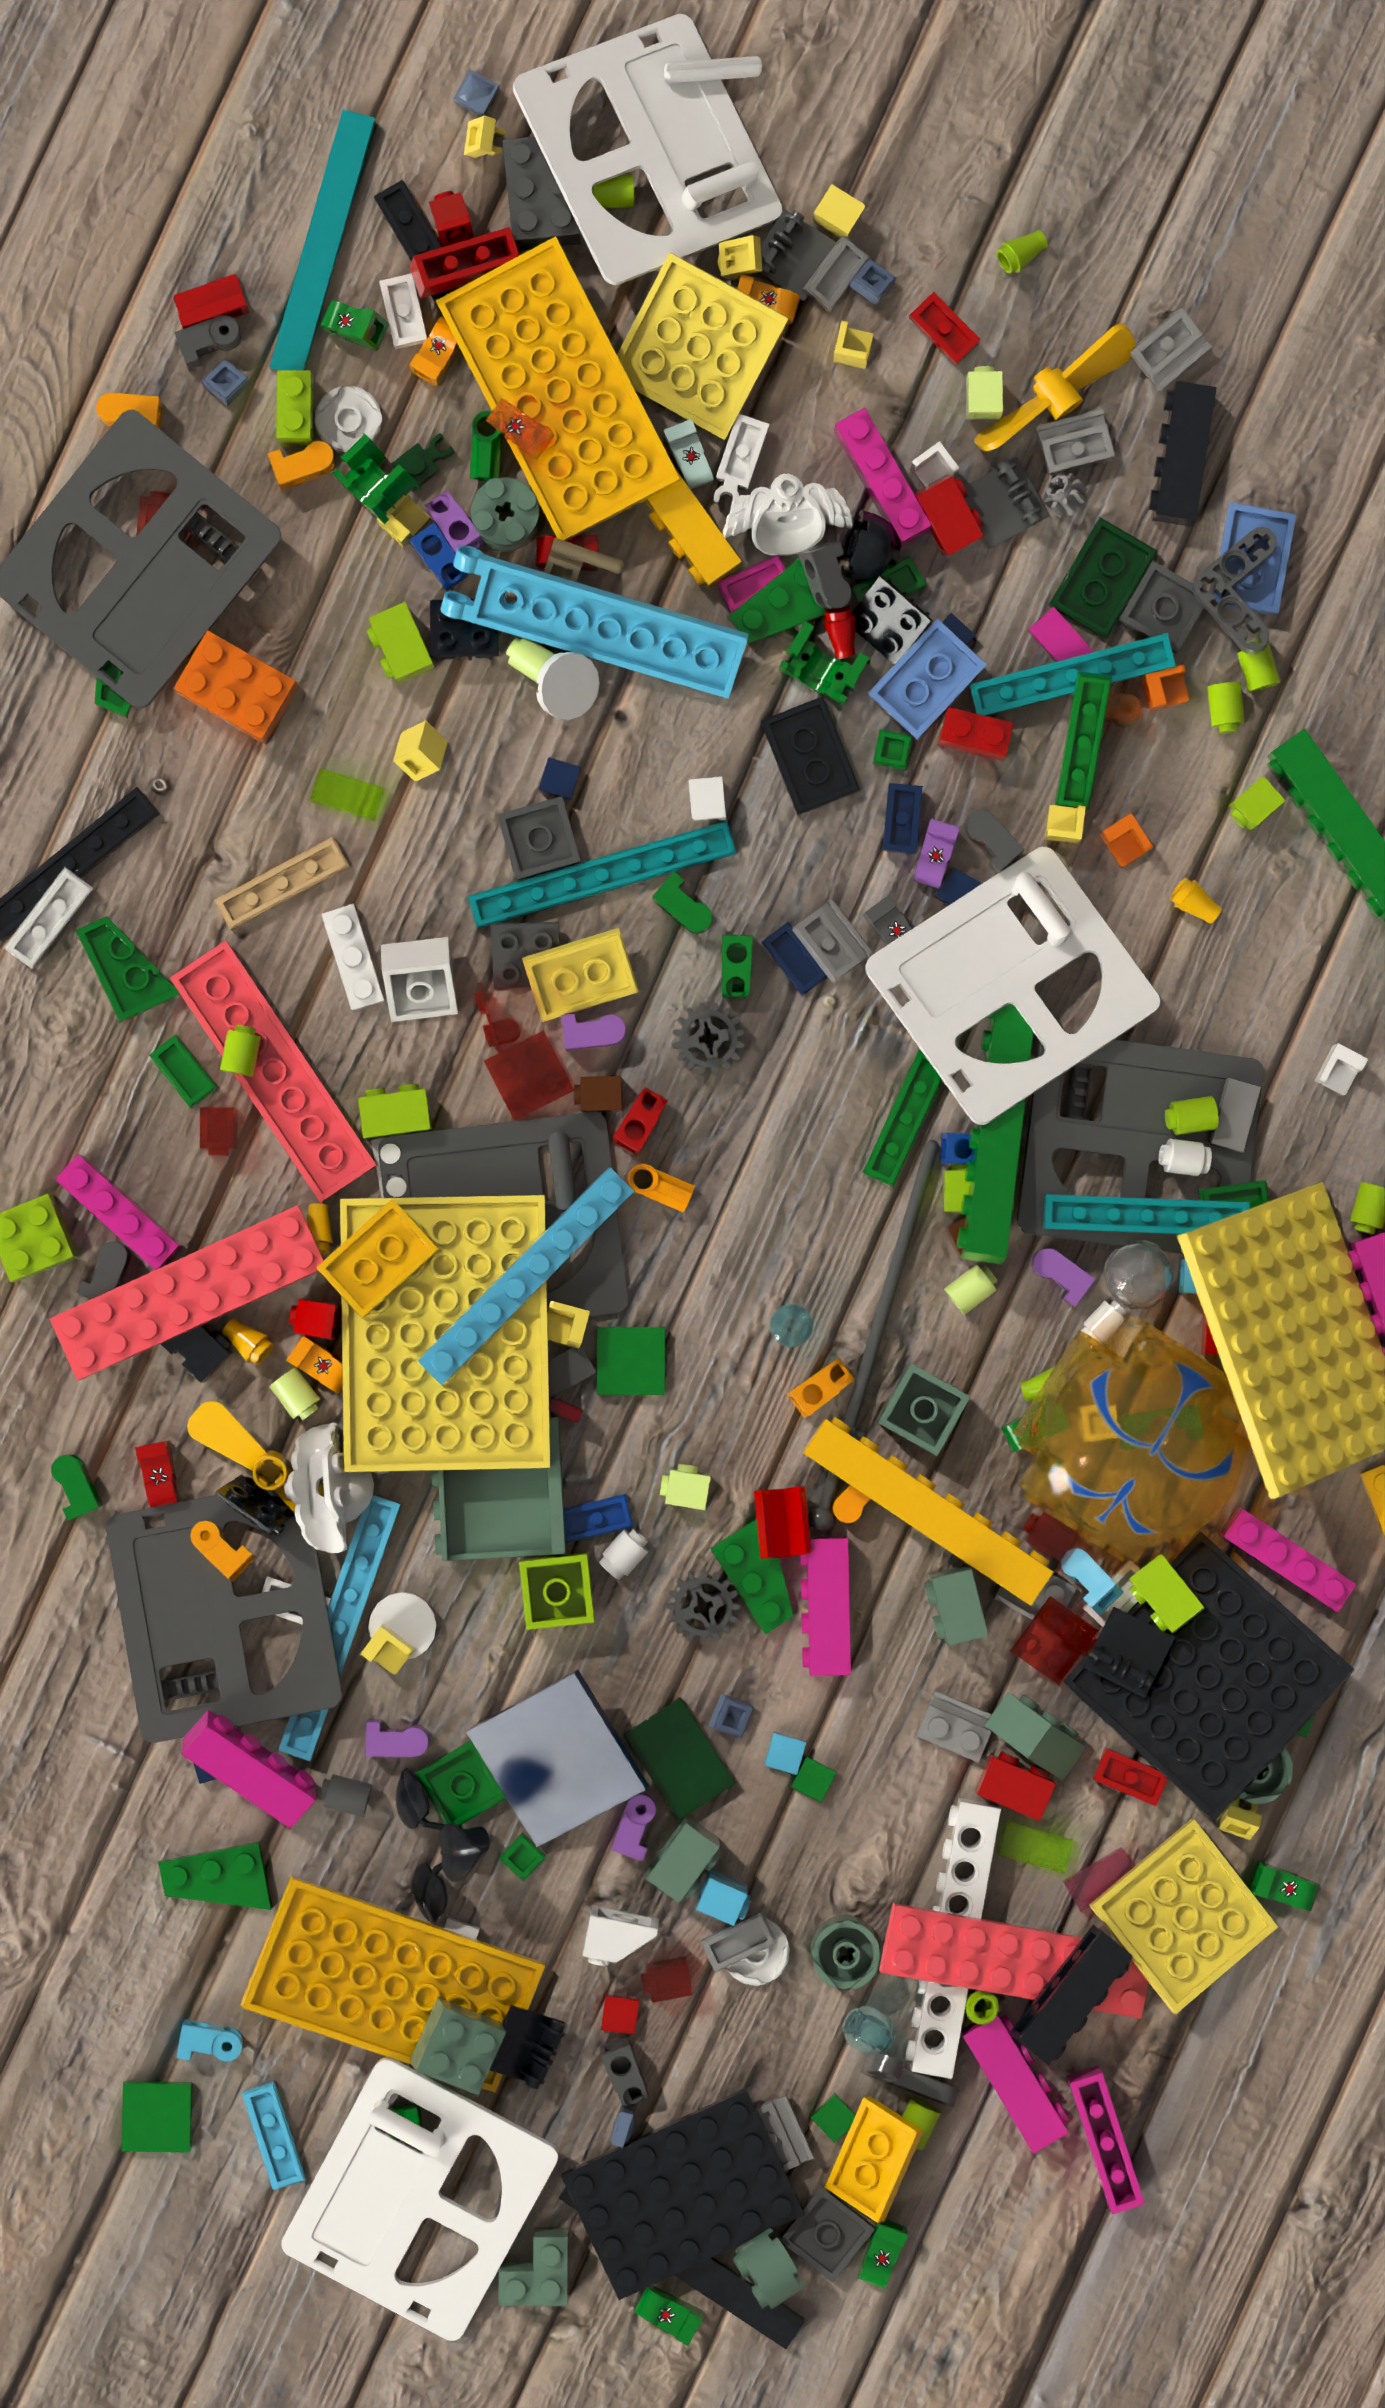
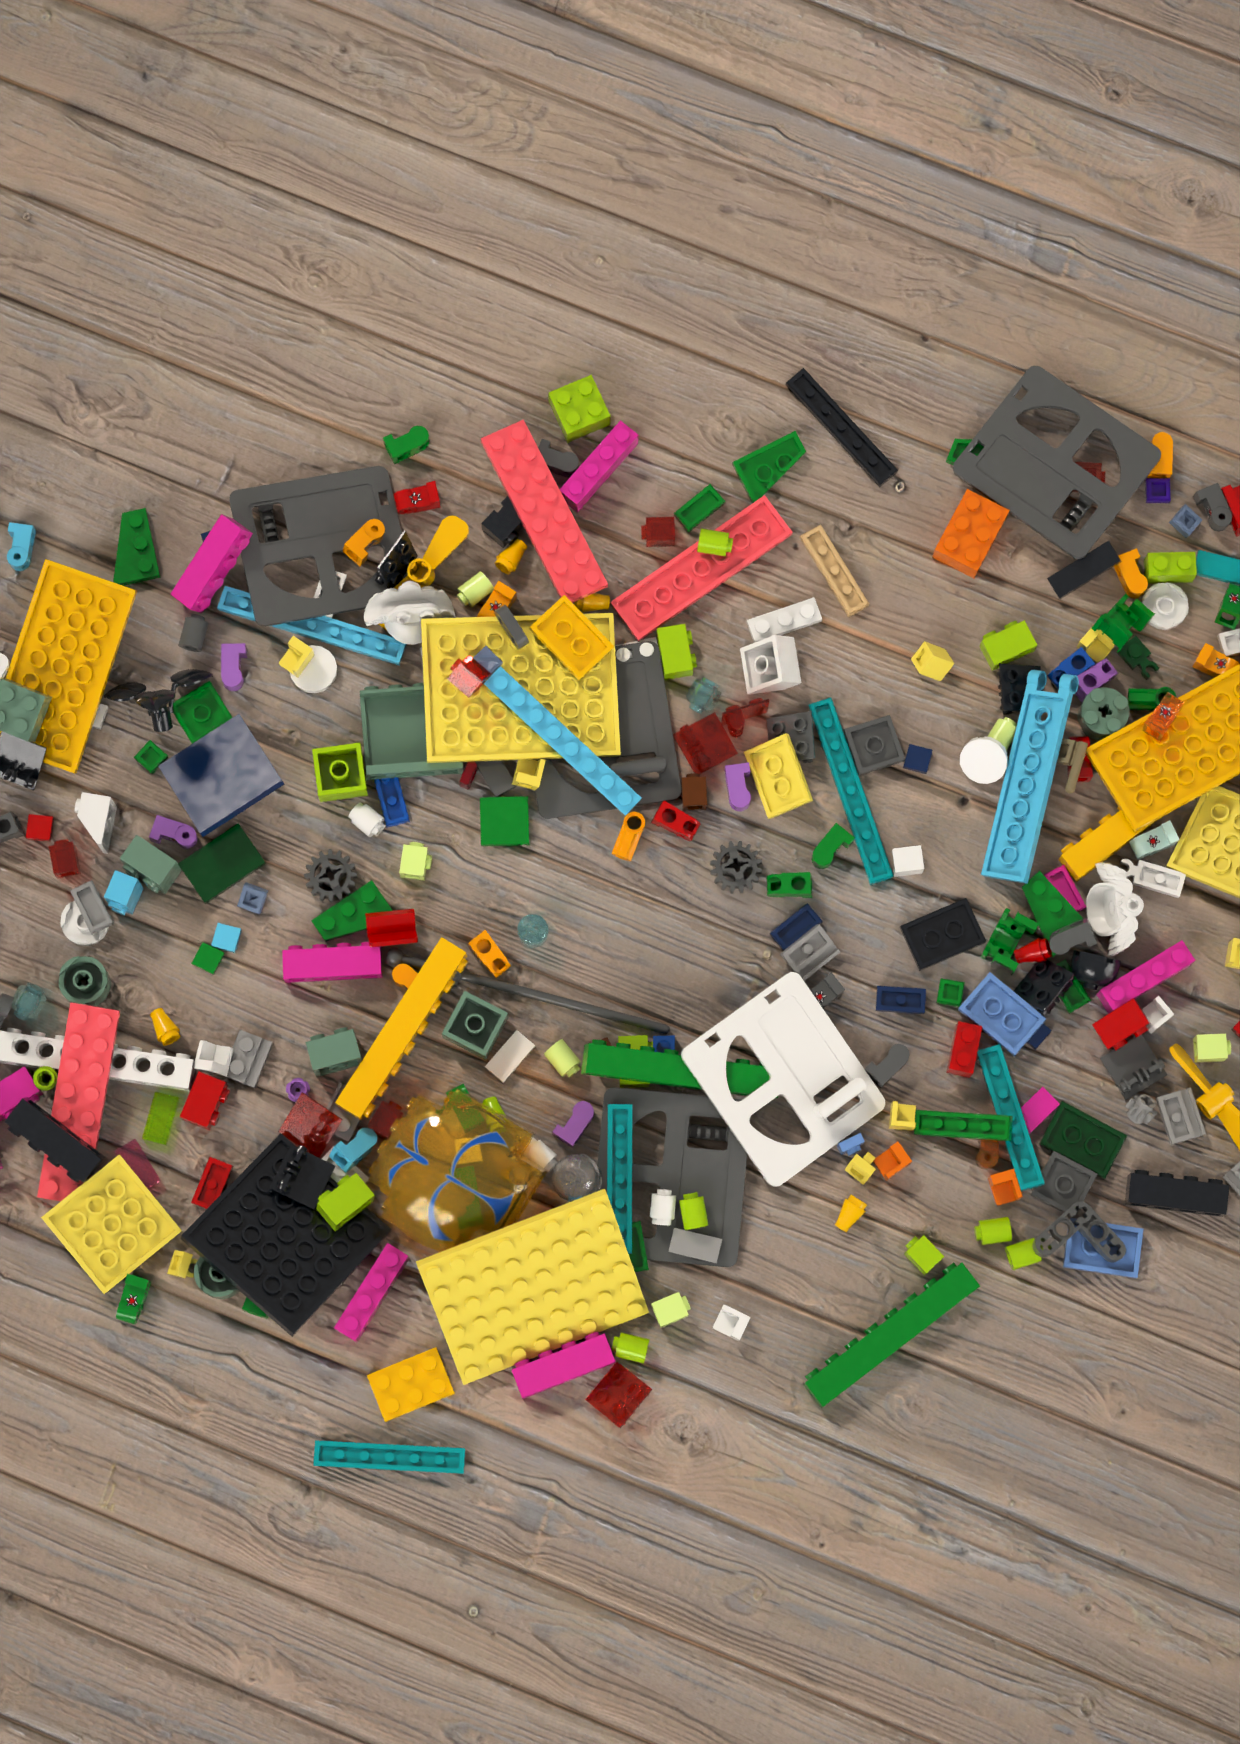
camera: 85 degrees right, 10 degrees down
(48, 917) = (803, 413): white tile -> none
(179, 419) = (1157, 490): none -> dark purple tile
(296, 529) = (1084, 570): none -> black tile
(315, 1318) = (528, 600): red slope -> none
(347, 794) = (899, 613): clear neon green tile -> none
(361, 1343) = (511, 627): none -> dark grey beam
(411, 1381) = (488, 660): none -> sand blue tile
(432, 1406) = (468, 675): none -> clear red brick
(460, 1075) = (703, 695): none -> clear light blue head
(903, 1121) = (678, 1007): green tile -> none
(910, 1840) = (165, 1028): none -> yellow cone
(935, 853) = (876, 1024): medium lavender leg -> none
(956, 886) = (854, 1040): dark blue tile -> none
(957, 1773) = (213, 1058): none -> white panel
(964, 1362) = (510, 1056): none -> white tile
(992, 1657) = (297, 1083): none -> medium lavender plate
(1036, 1735) = (241, 1113): sand green brick -> none
(1103, 895) = (851, 1145): none -> medium blue plate
(1134, 883) = (861, 1168): none -> light yellow tile
(1322, 1151) = (670, 1309): none -> yellowish green brick

